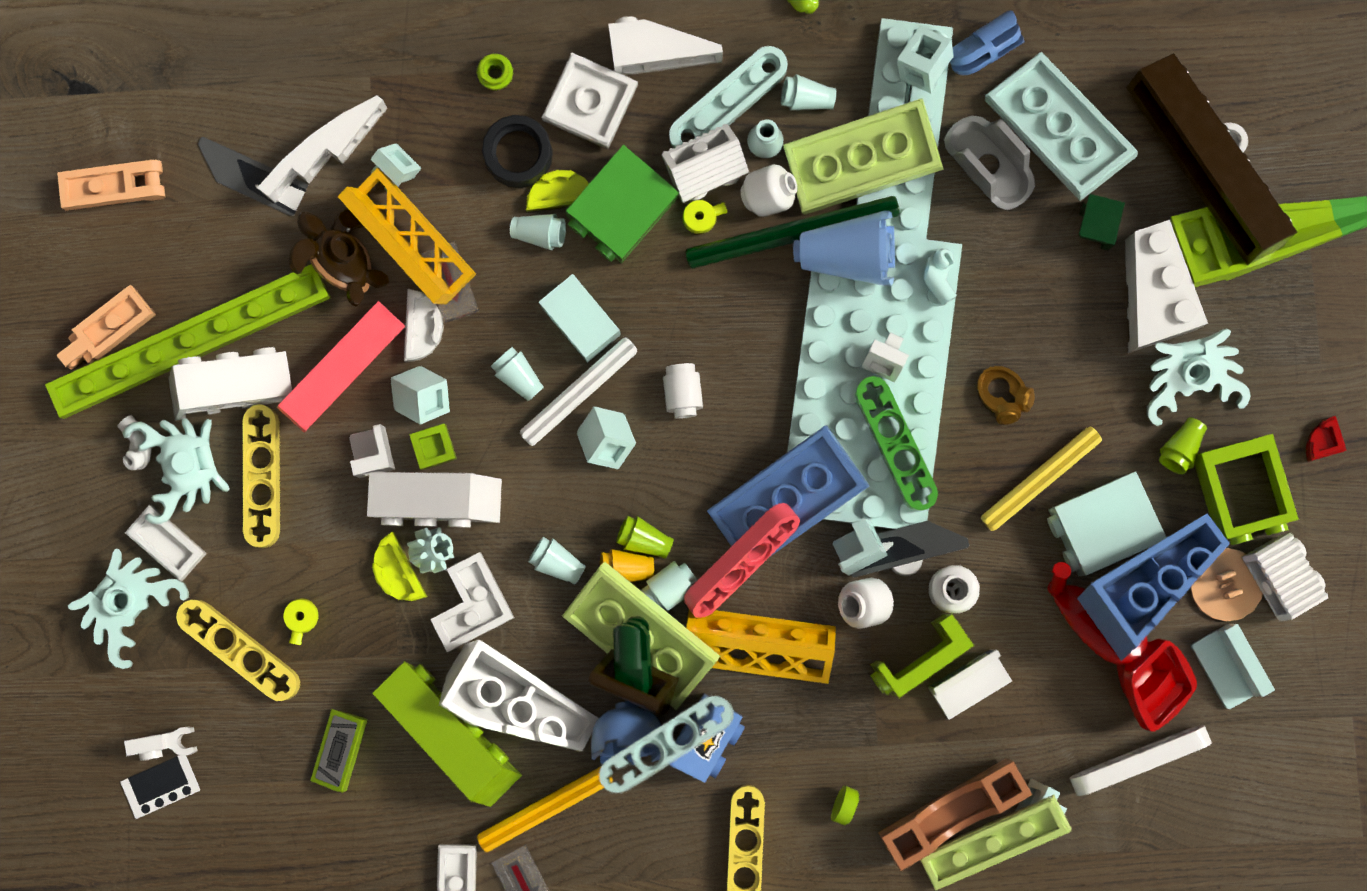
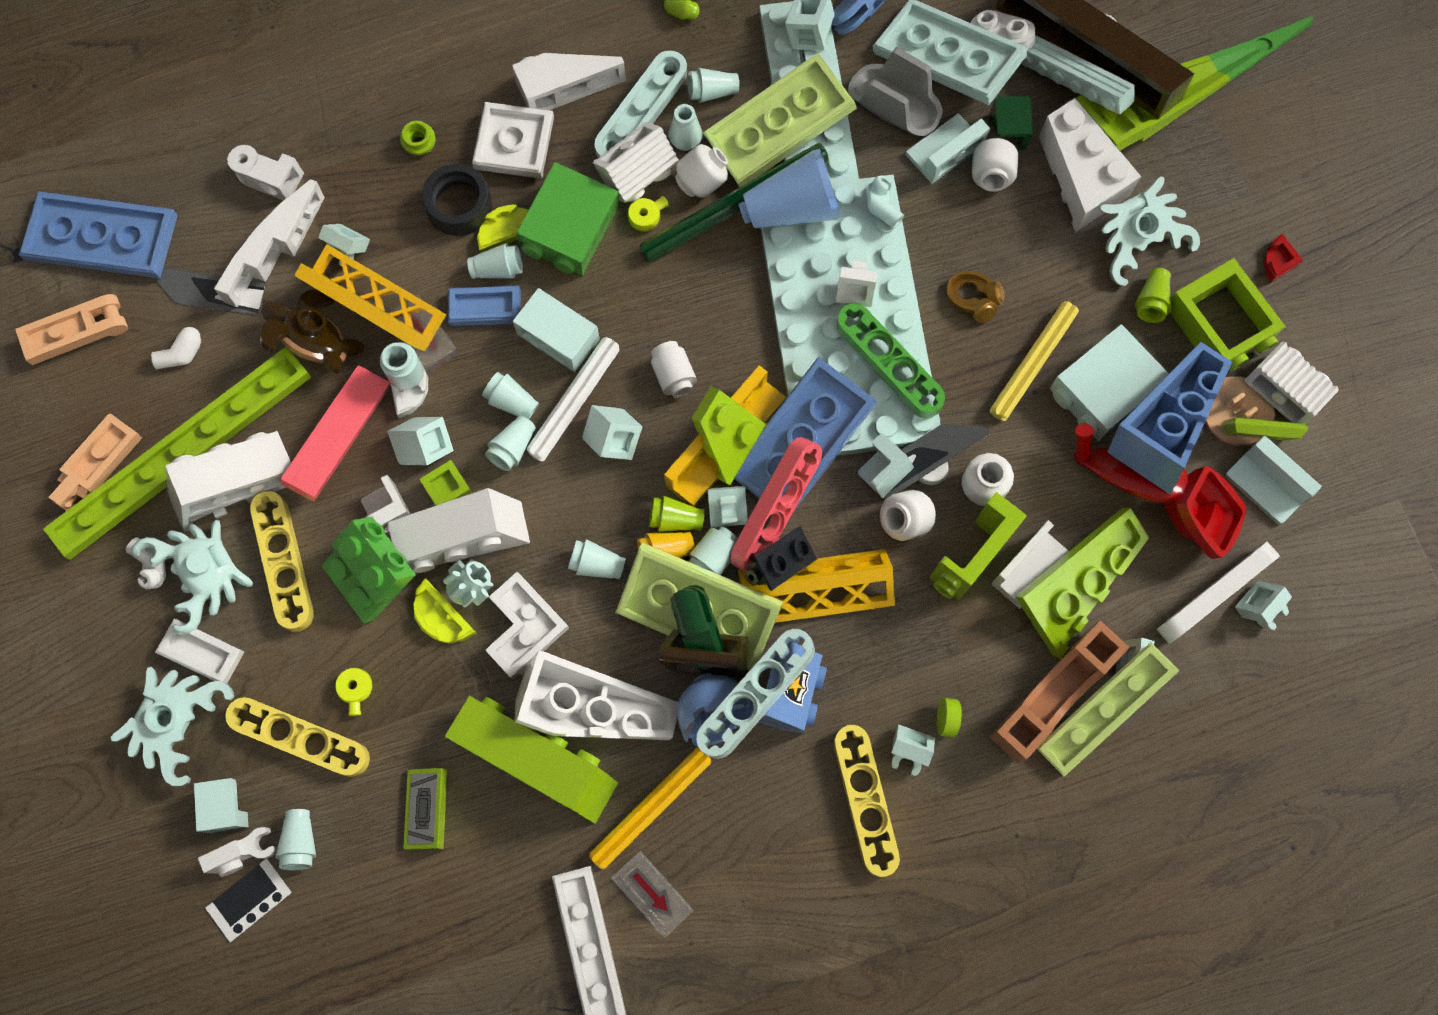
camera: 20 degrees left, 10 degrees down
(152, 697) = (218, 807): none -> light aqua panel
(156, 89) = (98, 234): none -> medium blue tile
(212, 237) = (181, 351): none -> white arm
(215, 747) = (296, 841): none -> light aqua cone
(333, 71) = (265, 174): none -> white leg
(339, 511) = (367, 568): none -> bright green plate
(412, 311) = (401, 365): none -> light aqua brick
(506, 421) = (510, 444): none -> light aqua cone
(516, 270) = (483, 305): none -> medium blue tile
(696, 543) = (727, 506): none -> light aqua tile
(714, 475) = (696, 471): none -> yellow fence
(714, 475) = (726, 431): none -> lime wing
(731, 615) = (781, 560): none -> black hinge
(802, 823) = (912, 746): none -> light aqua tile
(999, 717) = (1081, 579): none -> lime wing
(1026, 227) = (947, 147): none -> light aqua panel
(1067, 263) = (994, 164): none -> white head
(1125, 114) = (1007, 26): none -> white plate
(1180, 783) = (1264, 603): none -> light aqua tile
(1181, 192) = (1080, 76): none -> light aqua piece
(1241, 614) = (1261, 428): none -> lime tile

